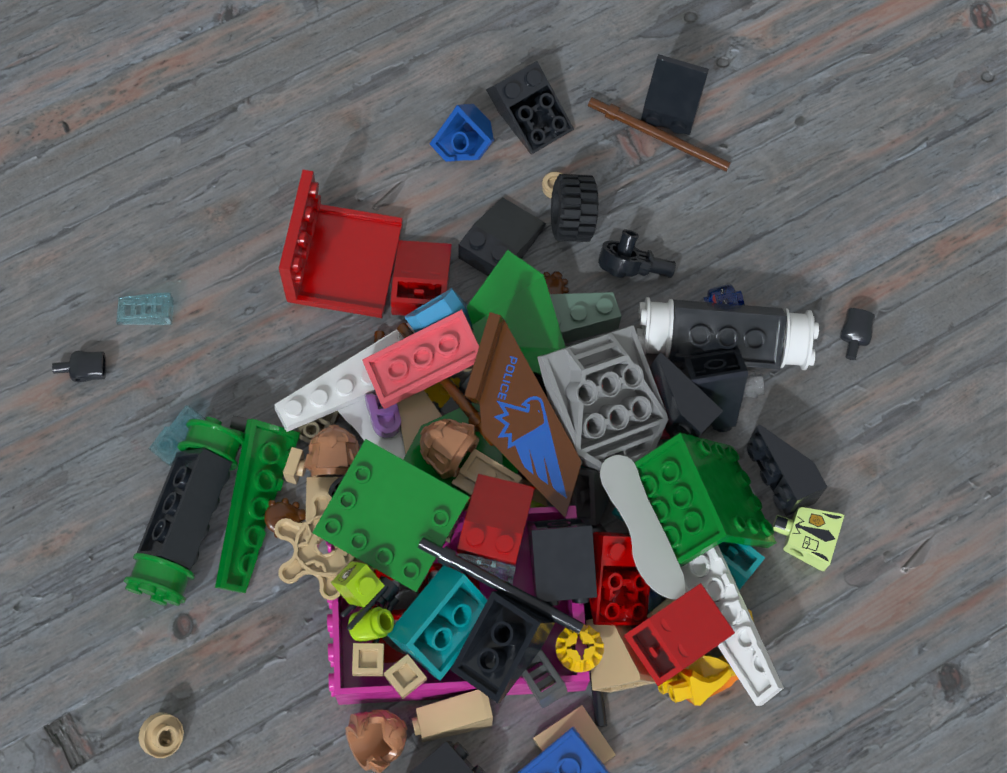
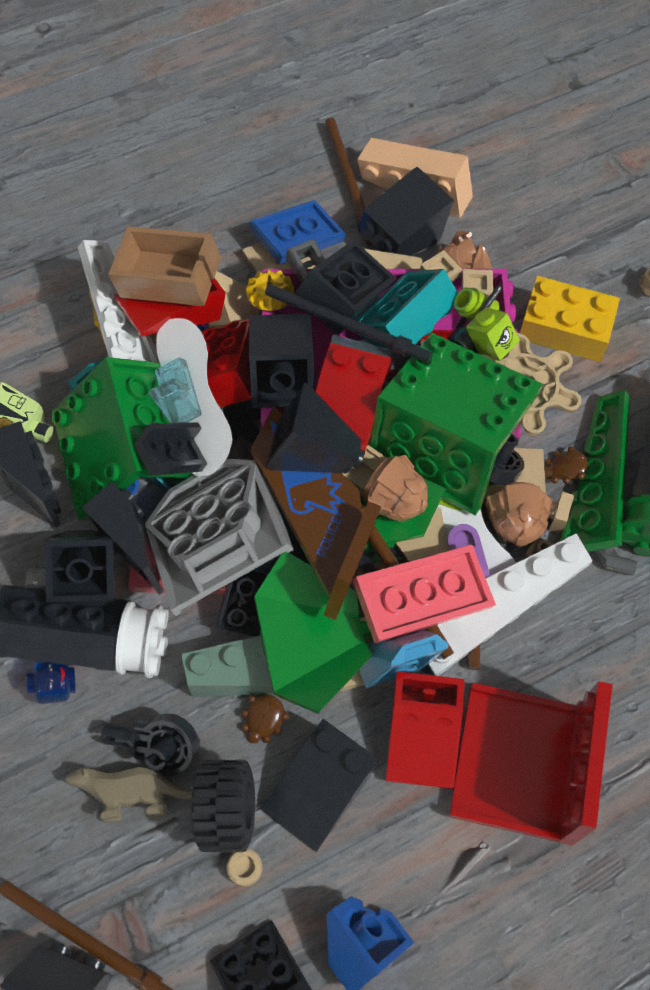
camera: 175 degrees left, 5 degrees down
(266, 677) = (570, 318): none -> yellow piece
(528, 461) = (313, 438): none -> black slope
(650, 228) = (127, 789): none -> dark tan animal
(652, 457) = (170, 448): none -> black bracket
(655, 521) = (176, 392): none -> clear light blue slope
(687, 637) = (165, 265): none -> medium nougat piece

